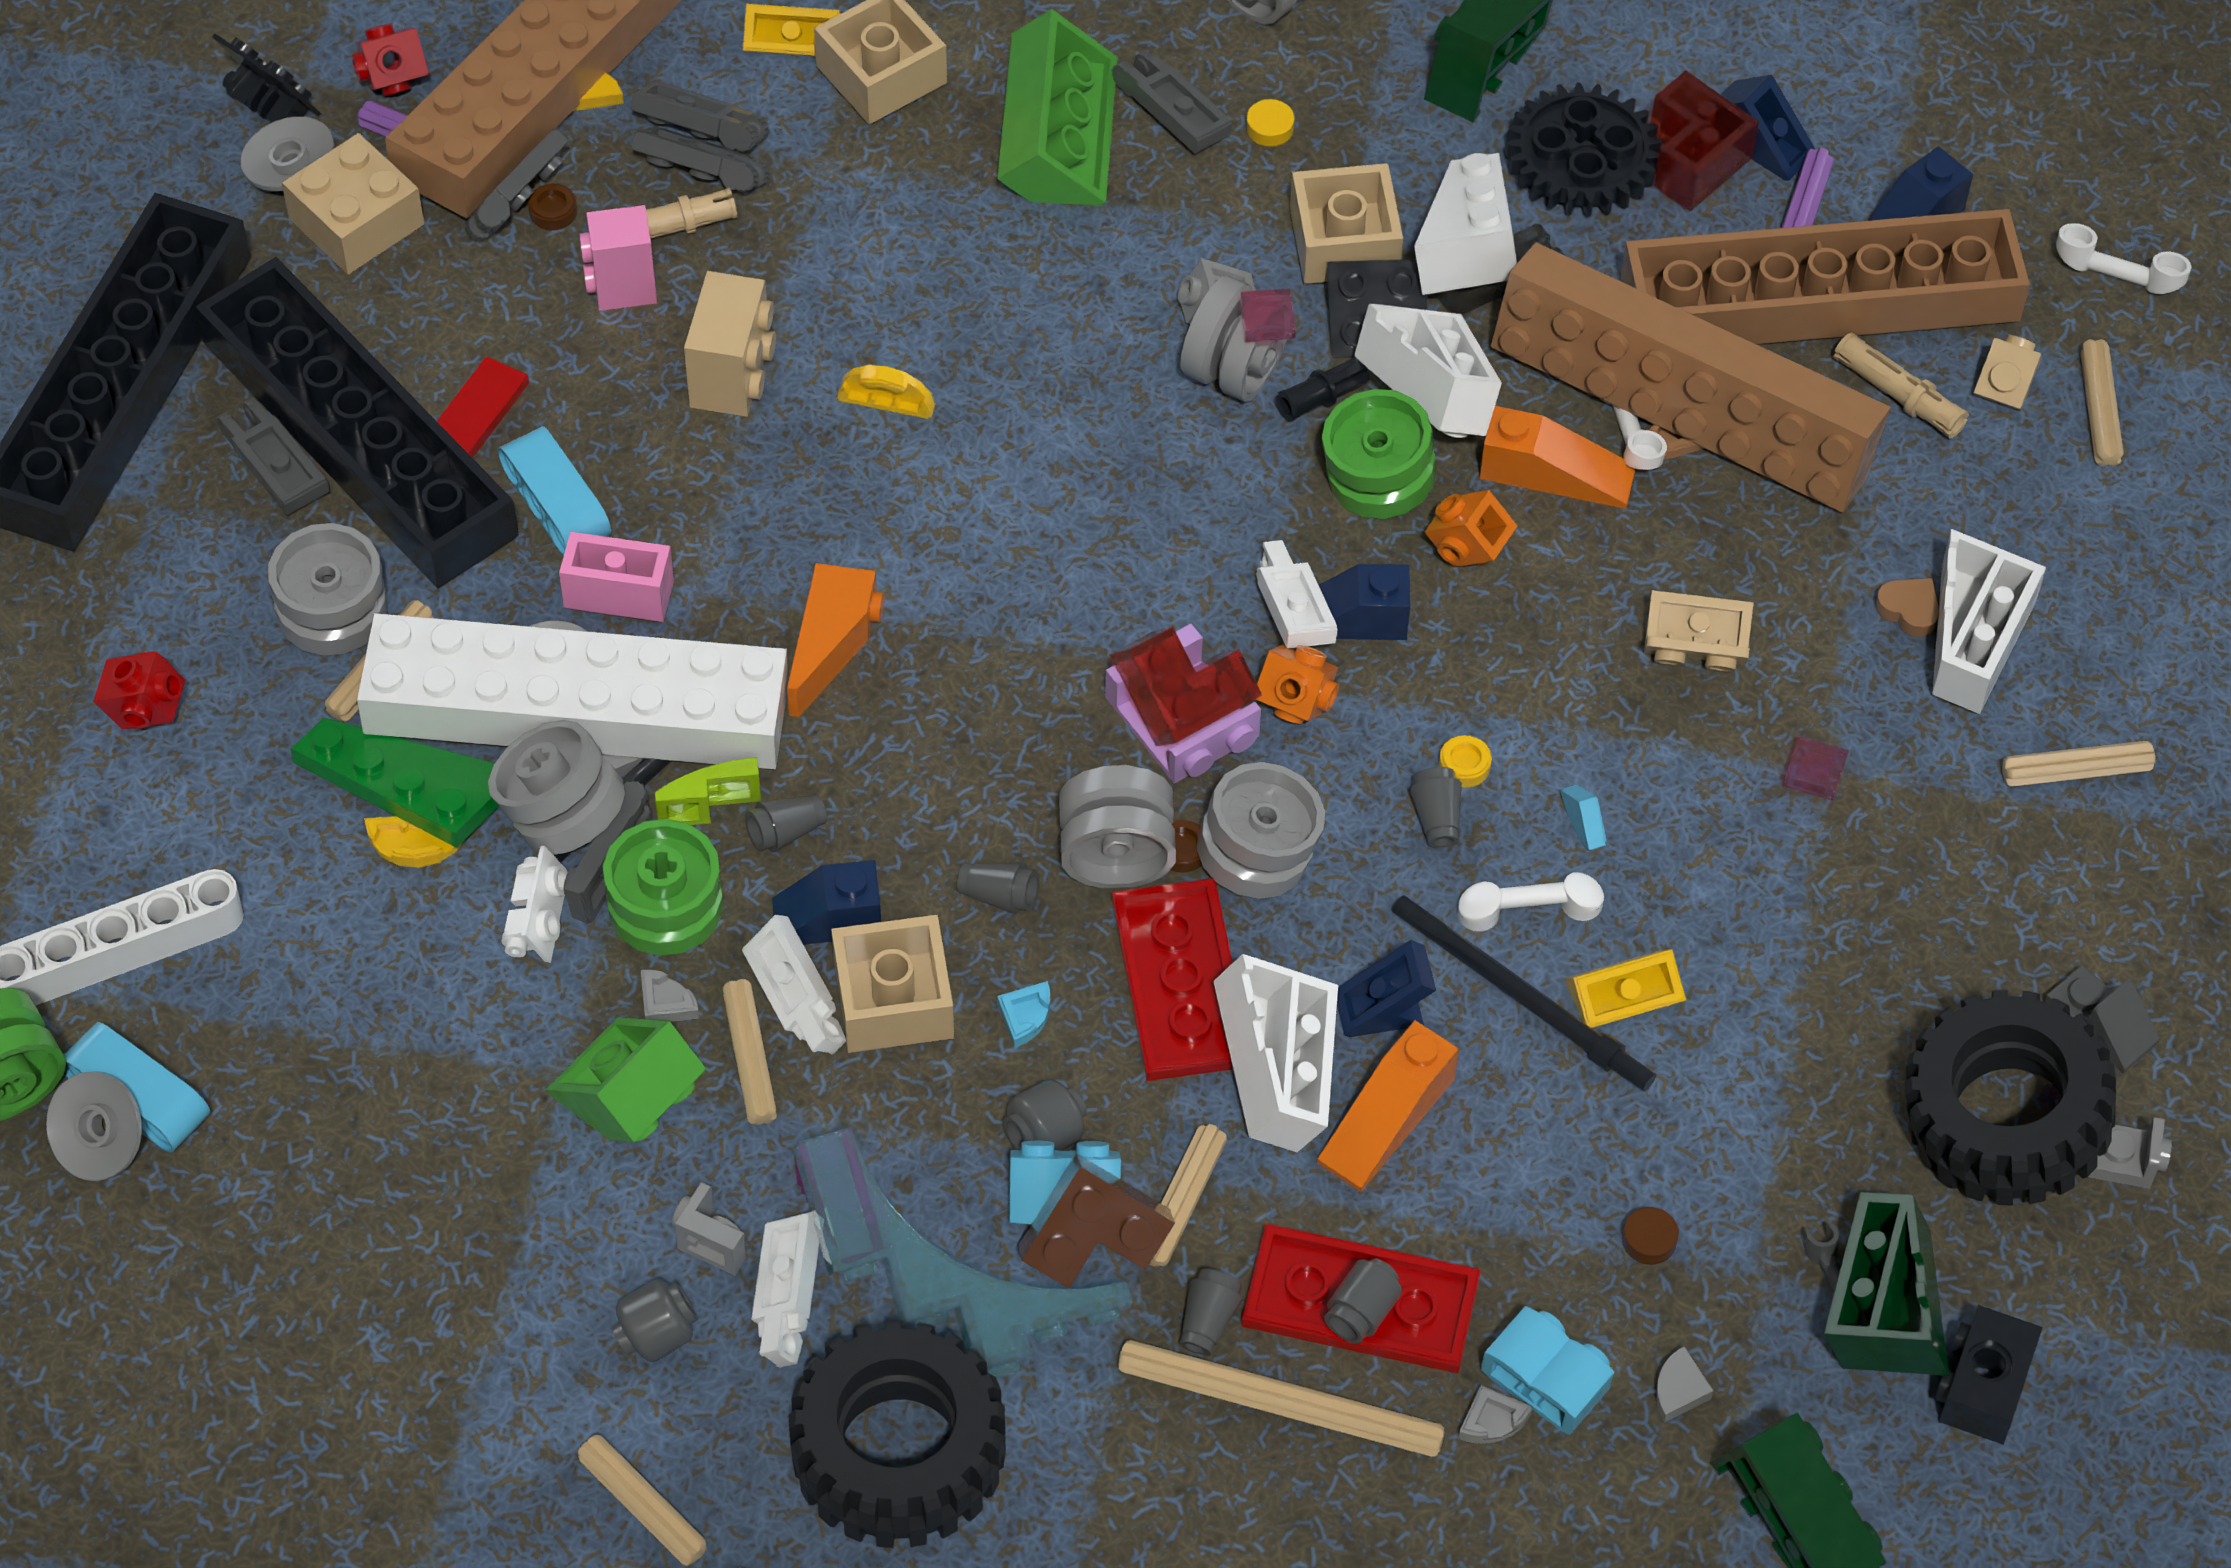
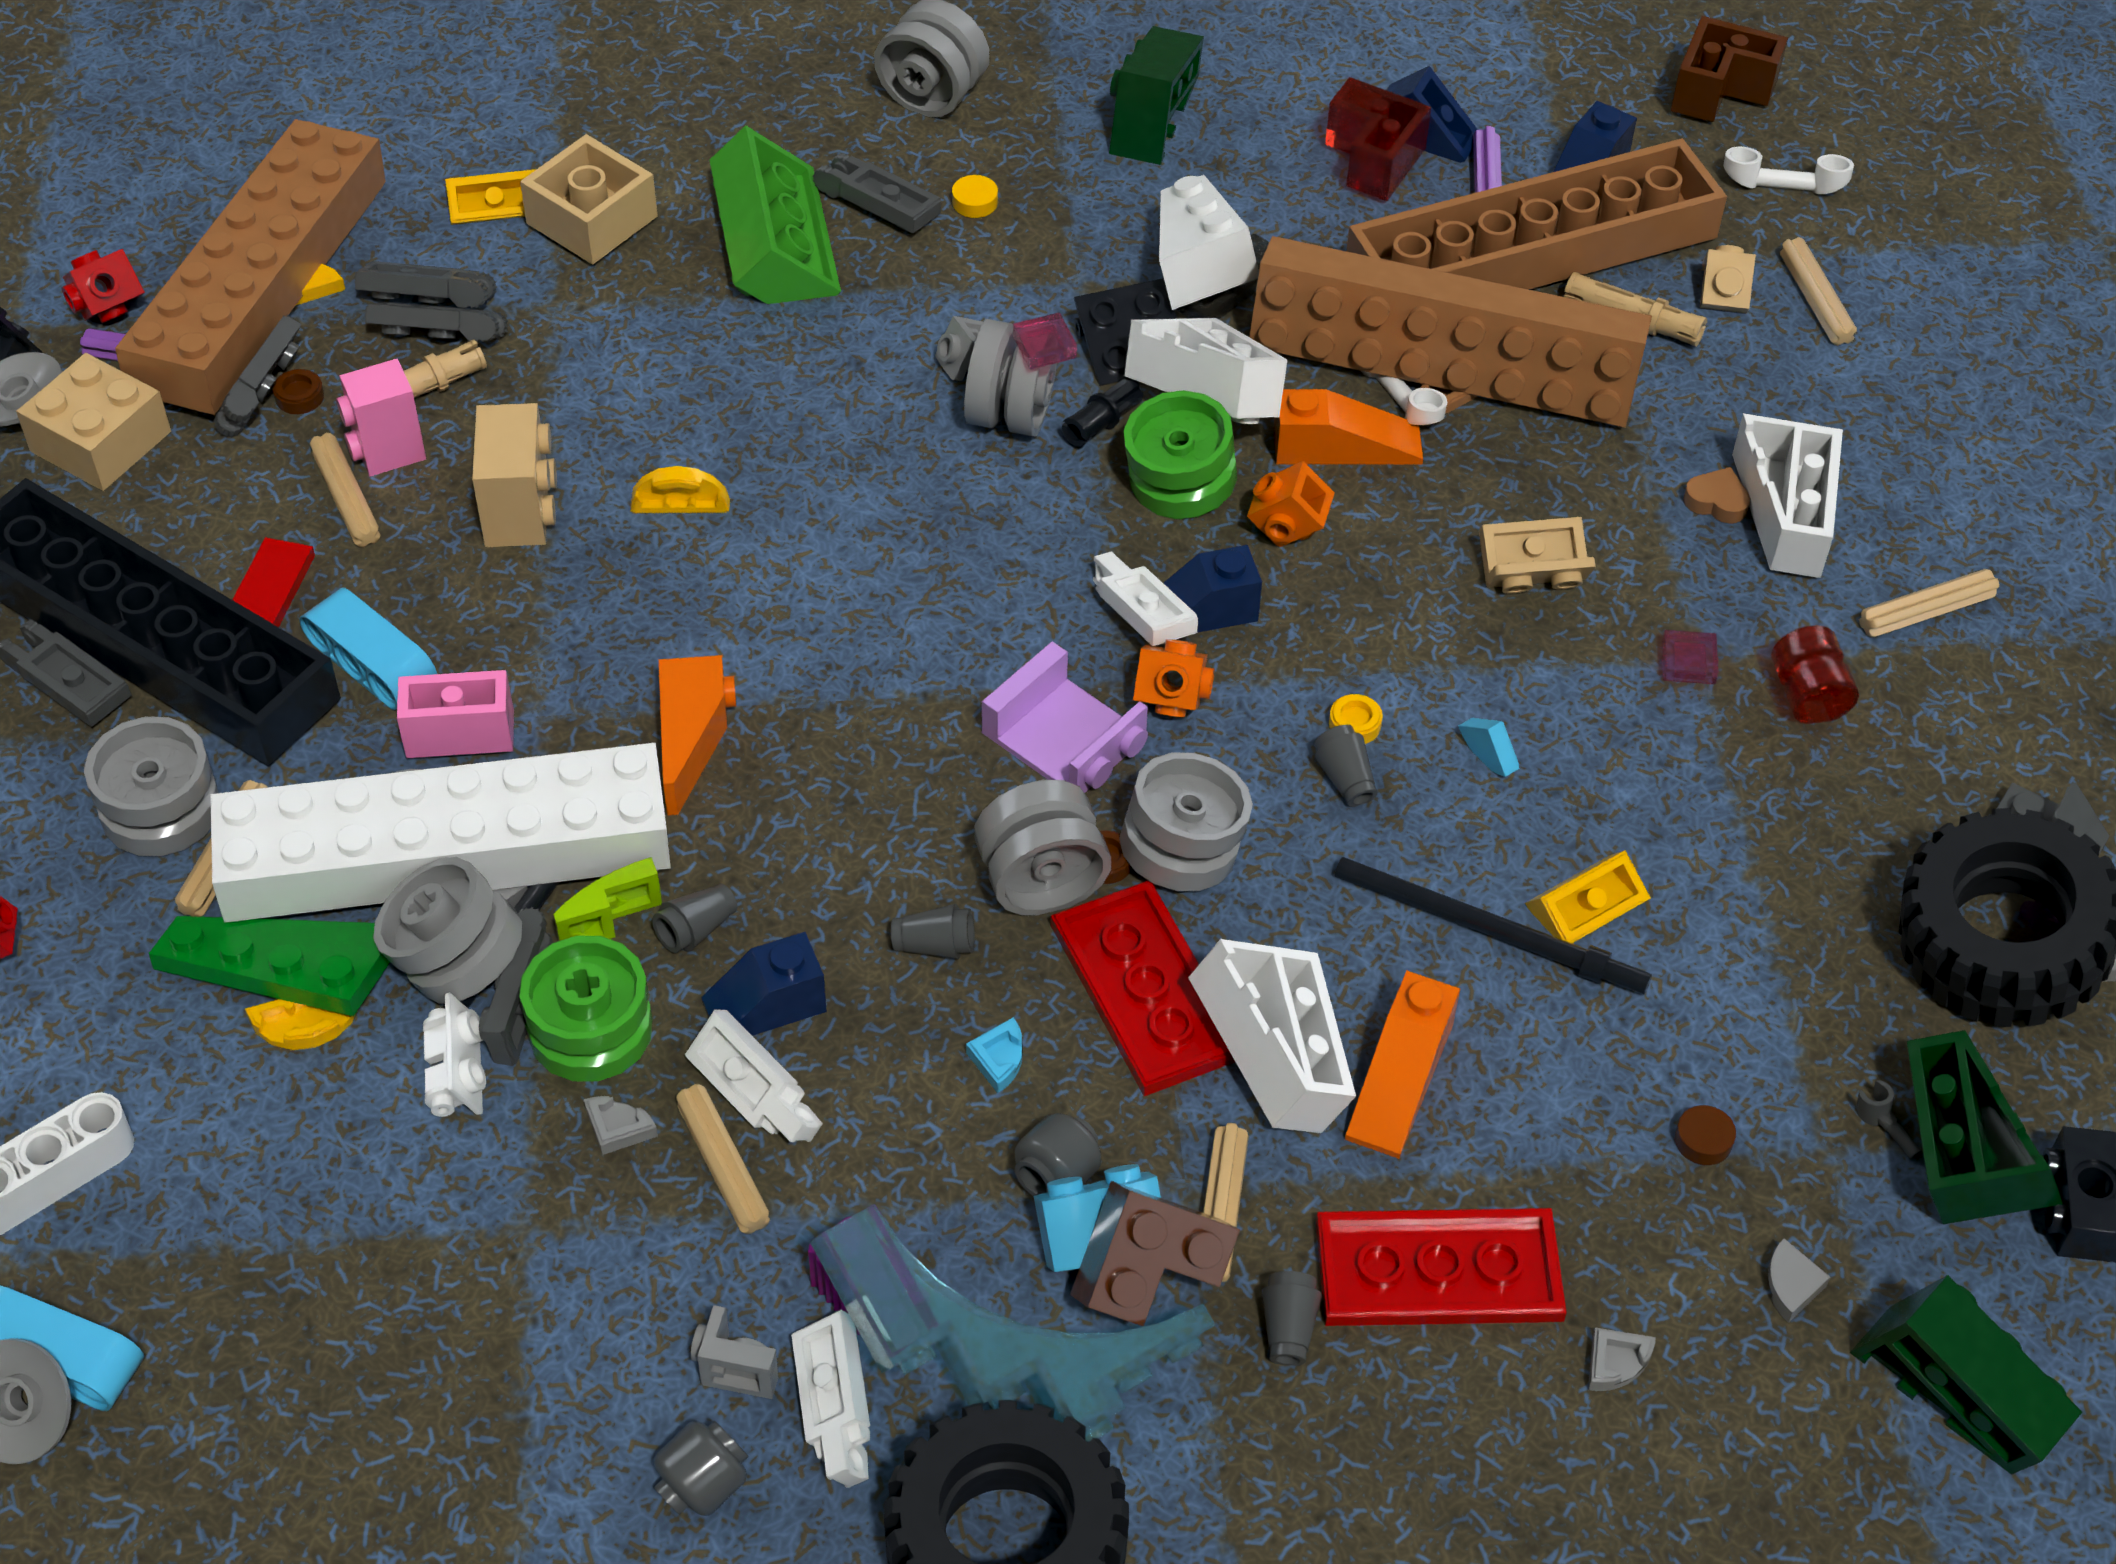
camera: 15 degrees left, 5 degrees down
(571, 321) = (345, 490): none -> tan axle
(629, 1078) = (601, 1213): bright green slope -> none
(893, 983) = (857, 1053): tan brick -> none
(1174, 694) = (1061, 709): clear red brick -> none
(1281, 1398) = (1394, 1391): tan axle -> none
(1344, 217) = (1075, 256): tan brick -> none
(1363, 1300) = (1451, 1267): dark grey brick -> none
(1387, 992) = (1363, 950): dark blue slope -> none
(1482, 902) = (1423, 845): white bar -> none
(1548, 1369) = (1659, 1294): medium azure brick -> none
(1583, 149) = (1274, 165): black gear -> none
(1926, 814) = (1814, 674): none -> clear red wheel
(2097, 123) = (1727, 62): none -> reddish brown brick

